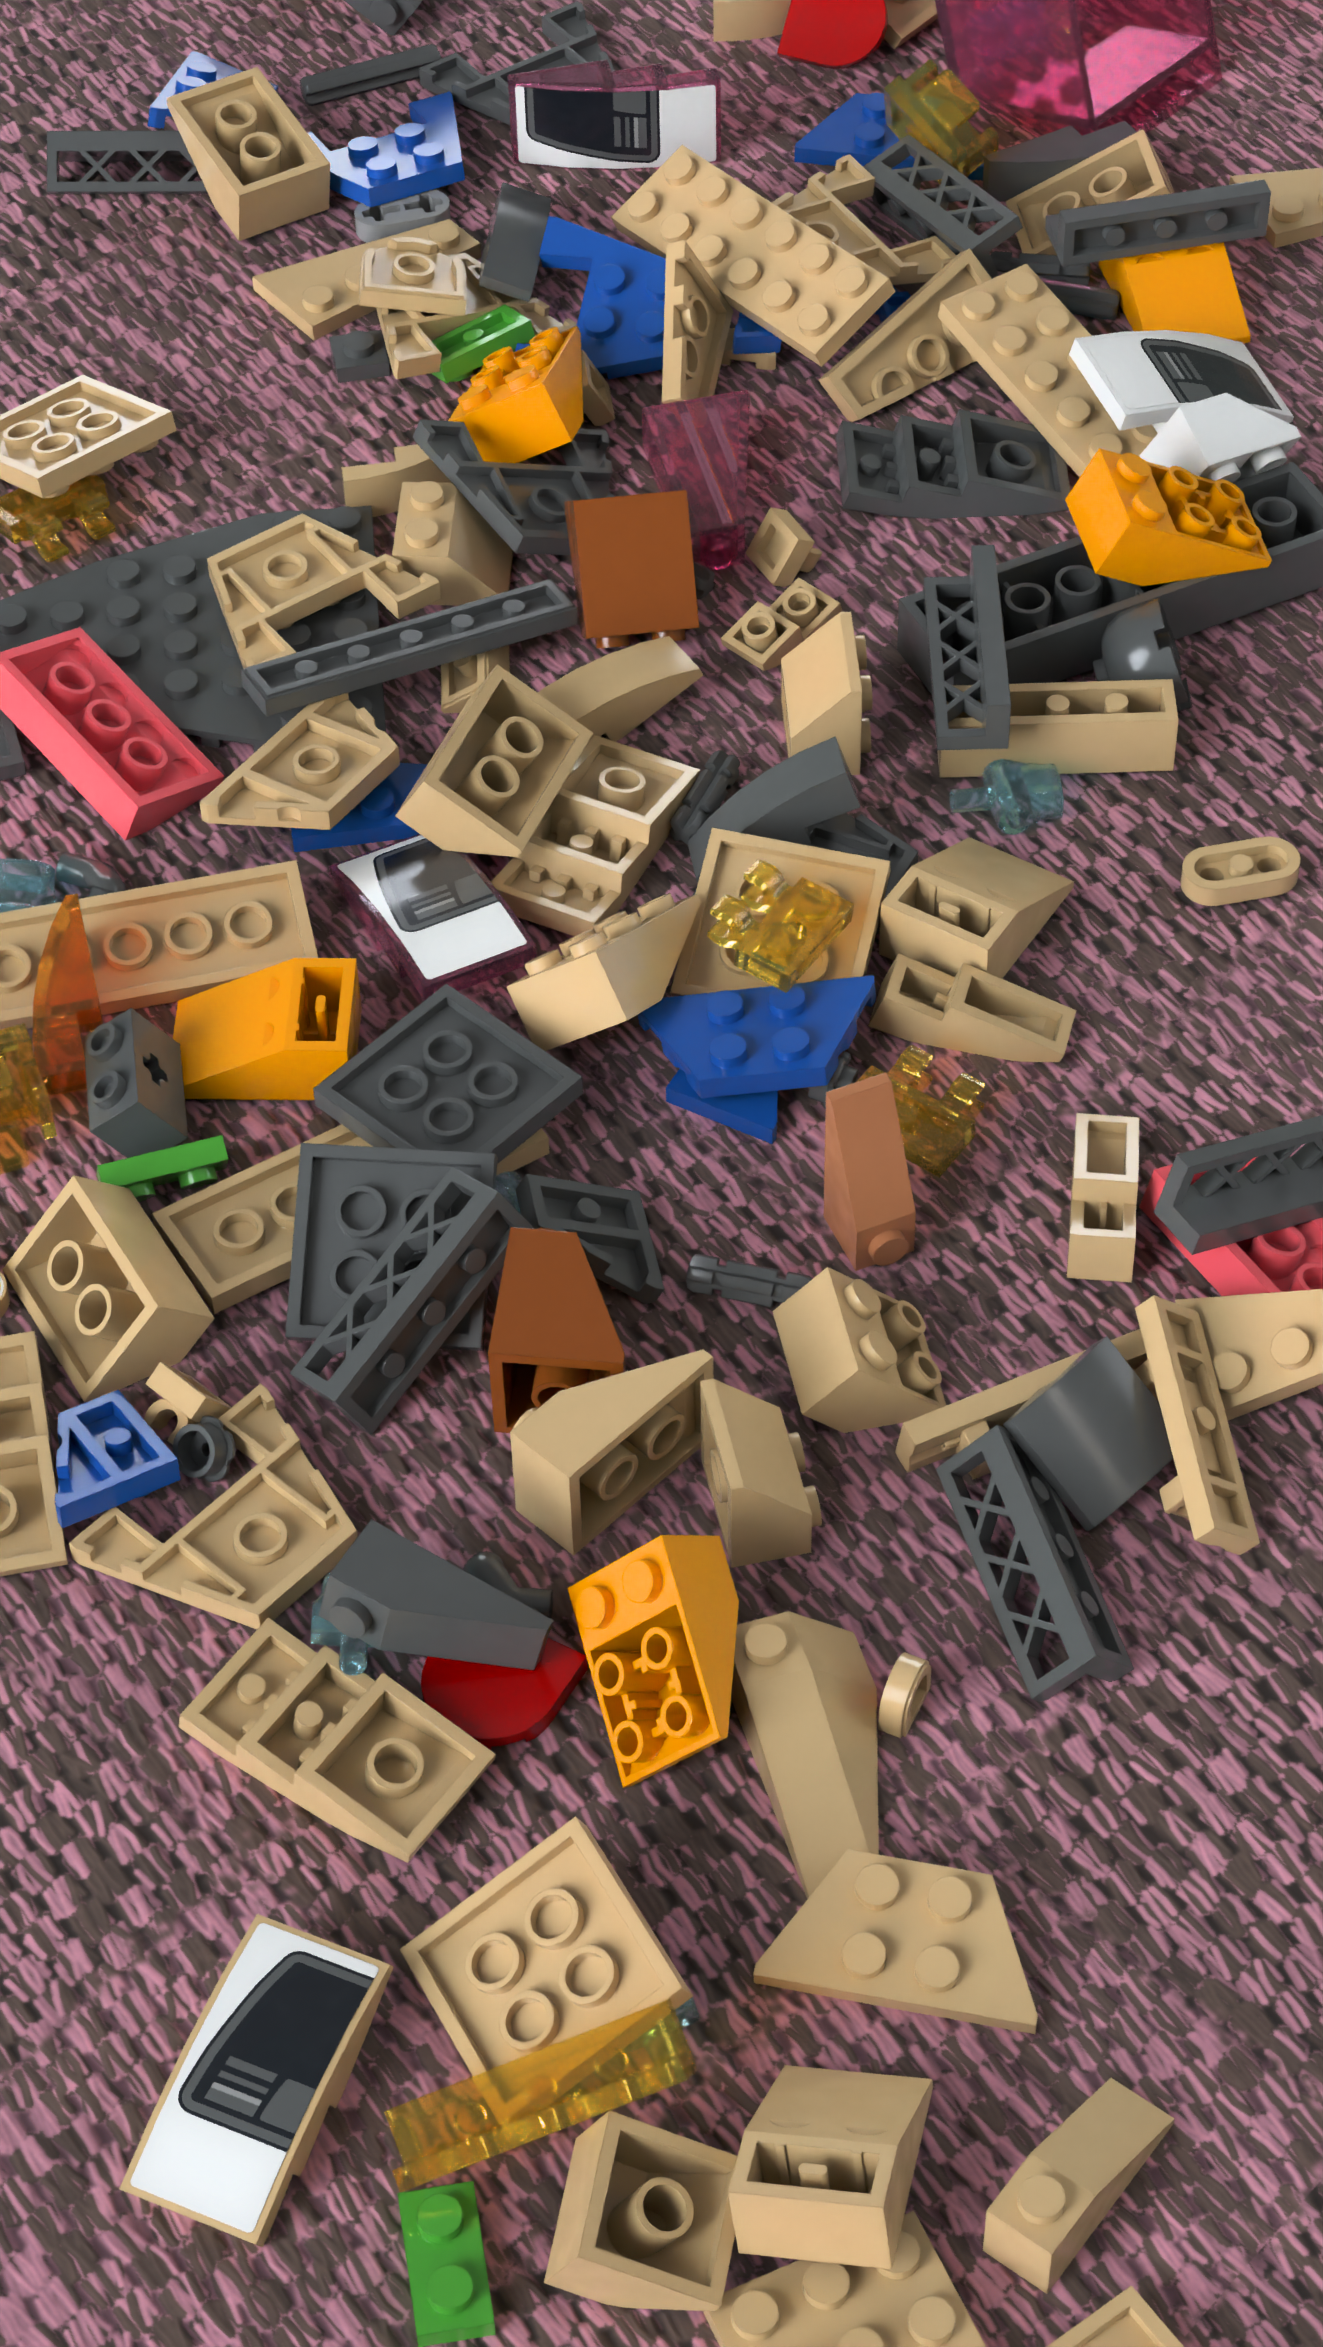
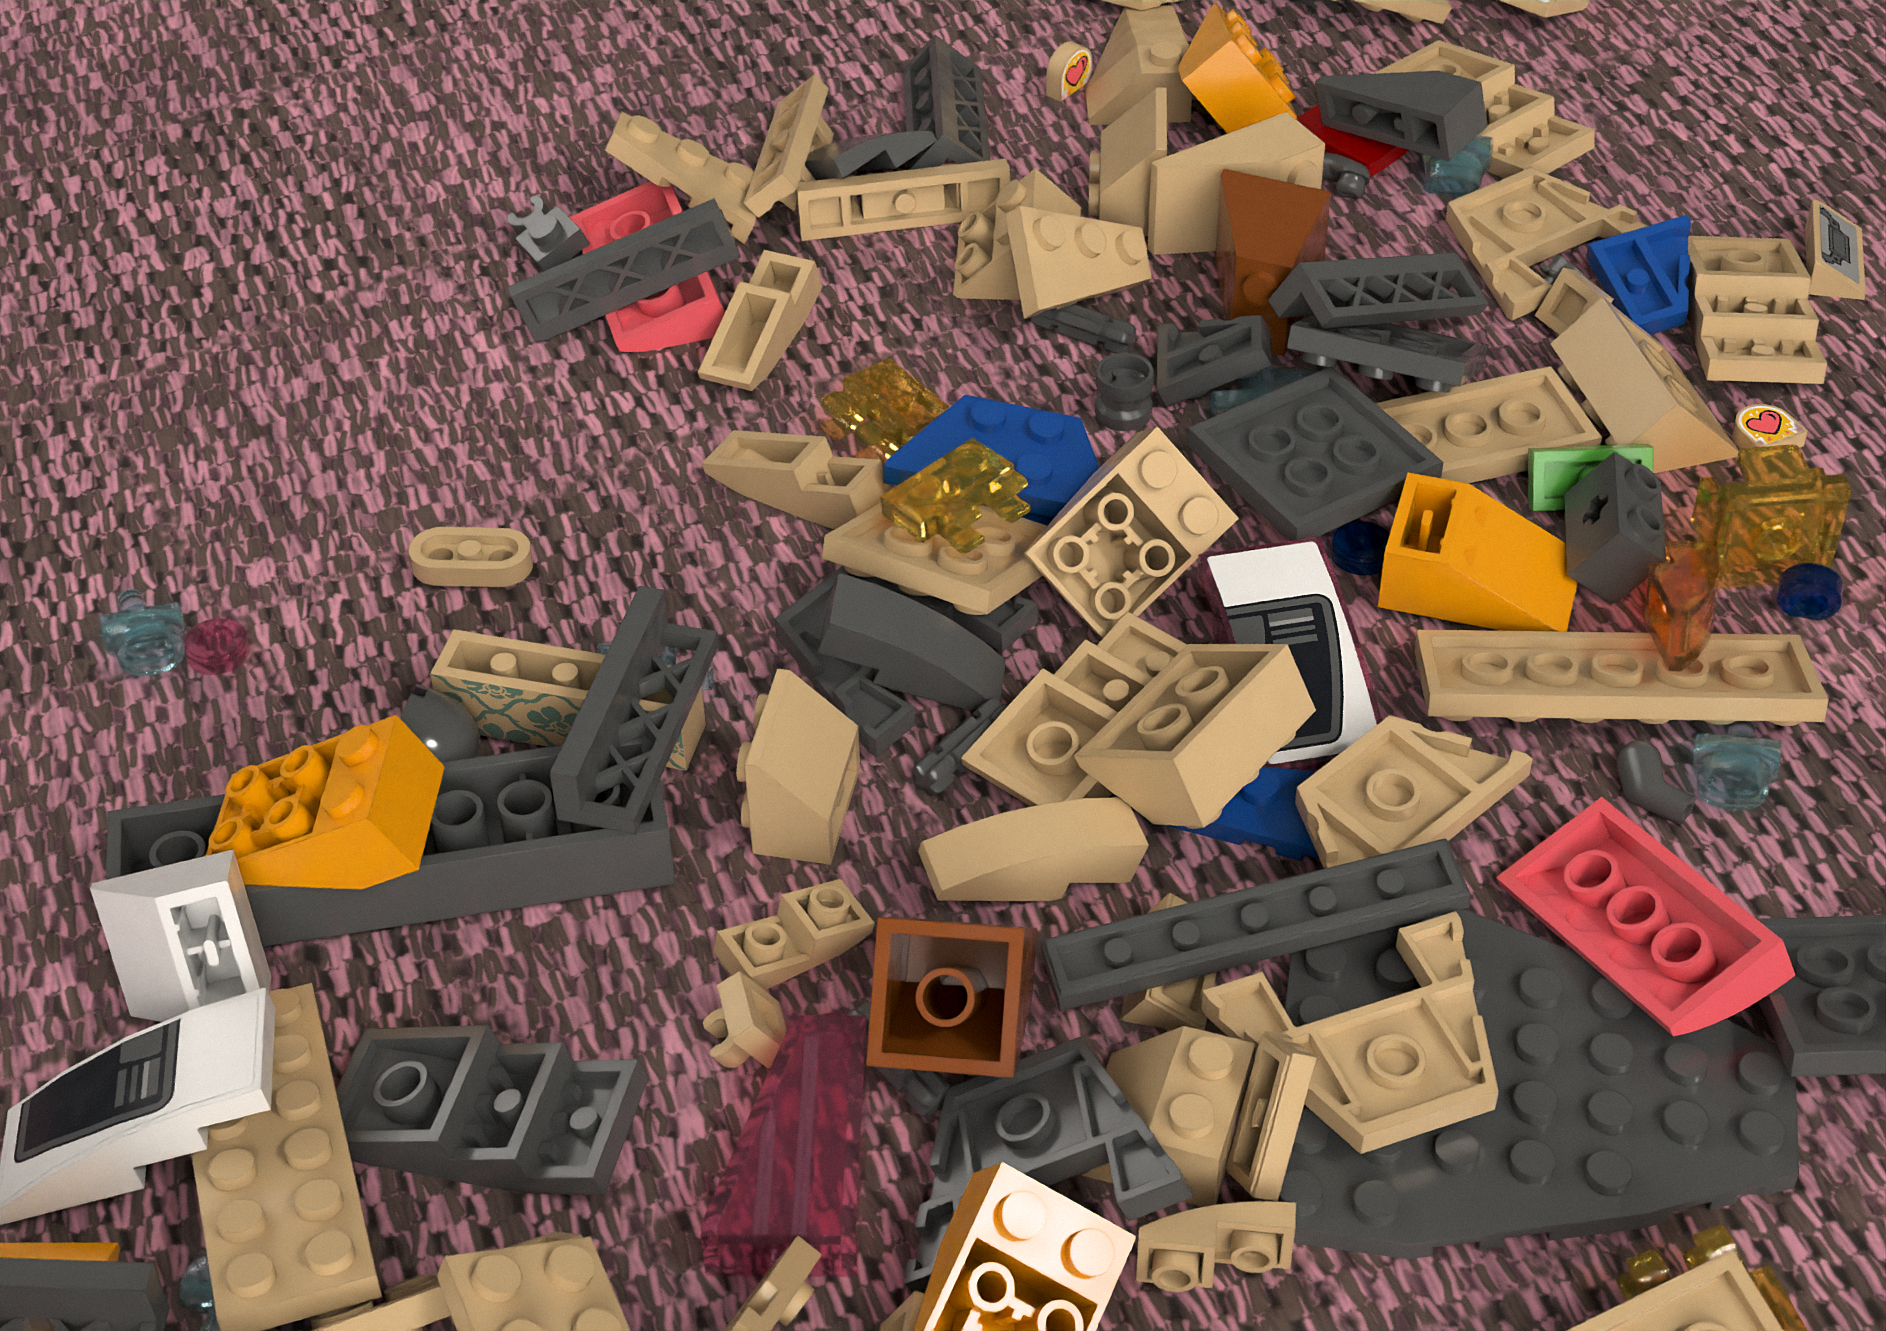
camera: 165 degrees left, 5 degrees down
(370, 517) = (1270, 1115): none -> tan tile
(672, 1175) = (1125, 400): none -> dark grey wheel
(775, 1289) = (1072, 258): none -> tan wing
(867, 1174) = (967, 306): nougat slope -> none
(969, 909) = (747, 548): tan slope -> none

